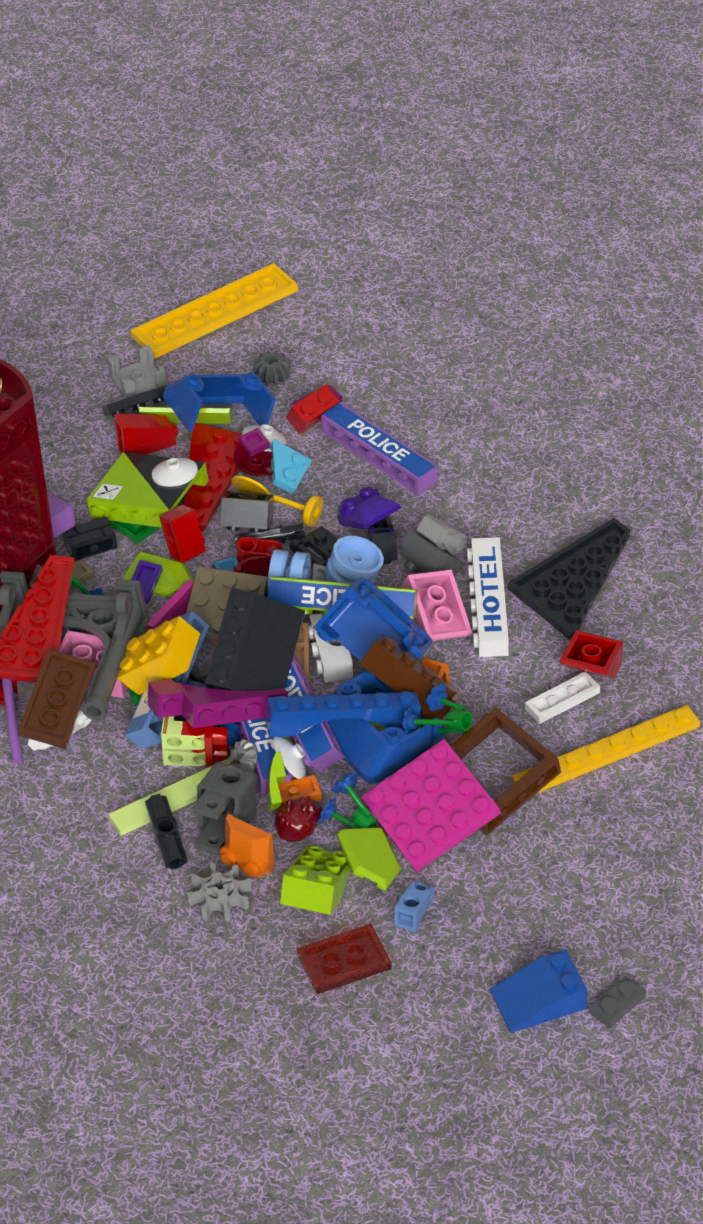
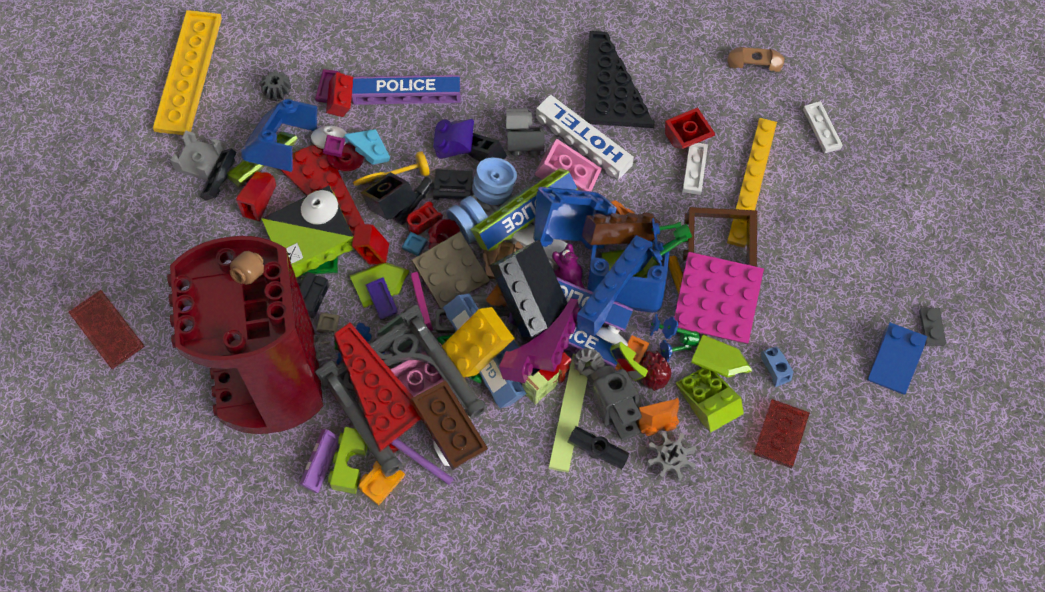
camera: 50 degrees left, 20 degrees up
(329, 672) = (568, 267): none -> magenta animal

